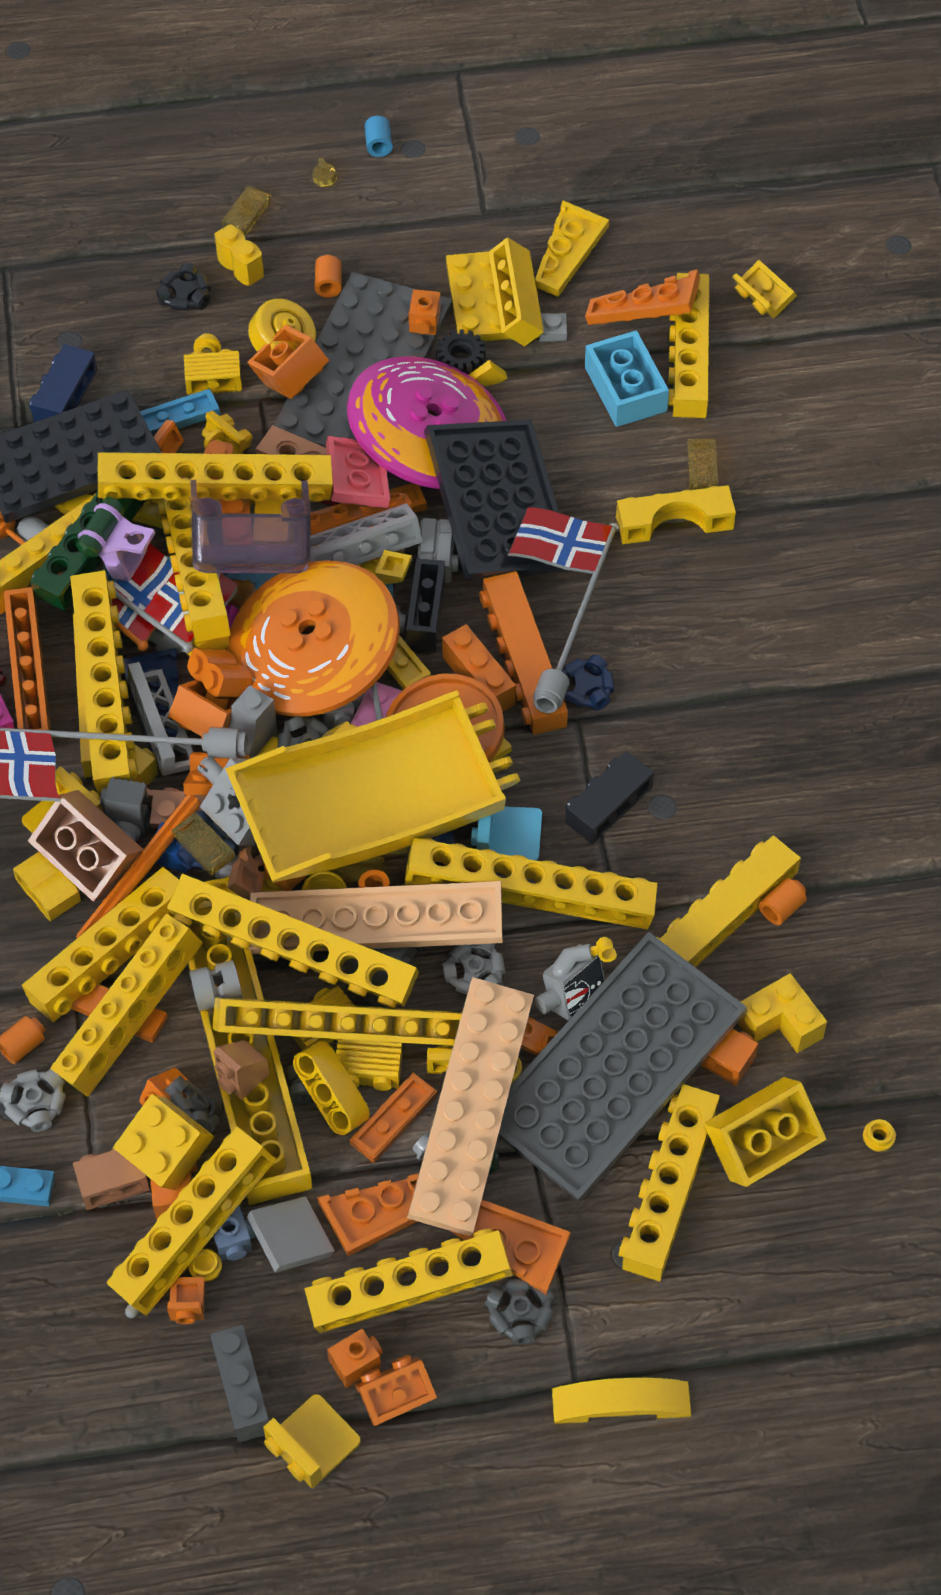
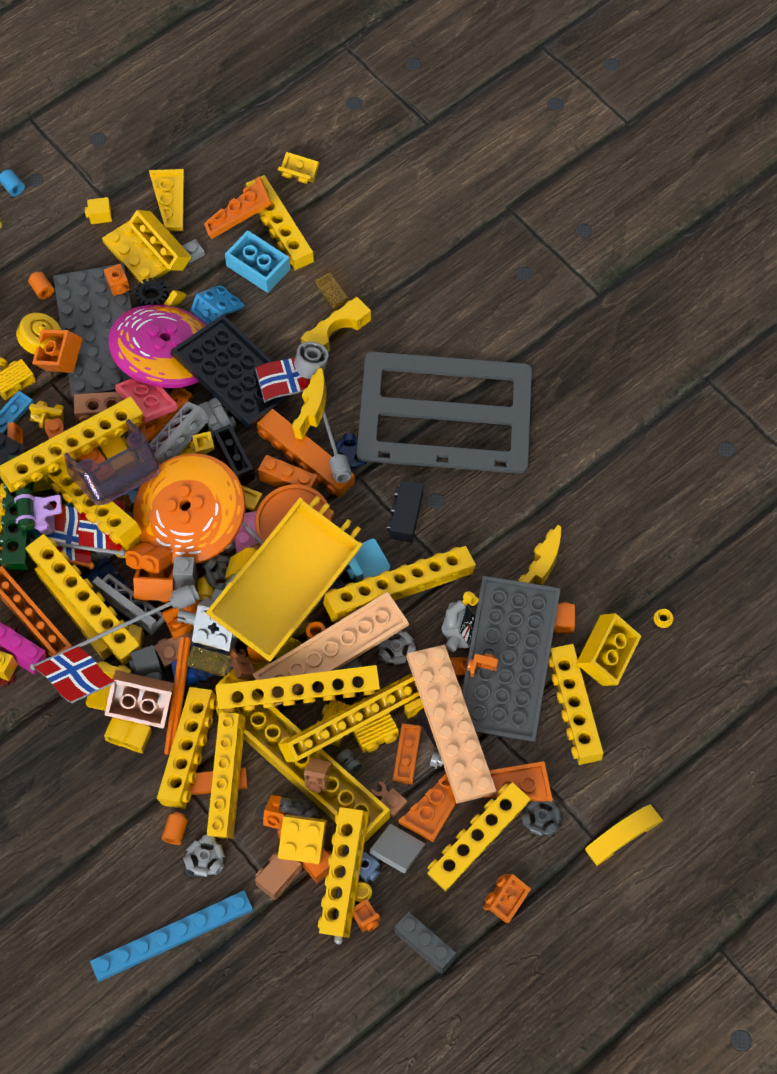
camera: 30 degrees left, 5 degrees up
(204, 983) = (266, 741): light grey wheel -> none
(311, 1440) = (481, 949): yellow bracket -> none
(328, 1167) = (391, 799): none -> nougat plate
(331, 1088) = (367, 757): yellow beam -> none
(355, 1357) = (475, 893): orange brick -> none
(464, 220) = (98, 210): none -> yellow brick
(536, 402) = (215, 302): none -> dark azure bracket
(576, 1049) = (487, 661): none -> orange bracket
(578, 588) = (314, 405): none -> yellow slope
(608, 533) = (309, 358): none -> light grey piece
(731, 901) = (508, 533): yellow brick -> none
(763, 961) = (544, 559): none -> yellow slope
(783, 901) = (535, 518): orange brick -> none
(783, 1008) = (577, 577): yellow brick -> none
(848, 752) = (425, 455): none -> dark grey door

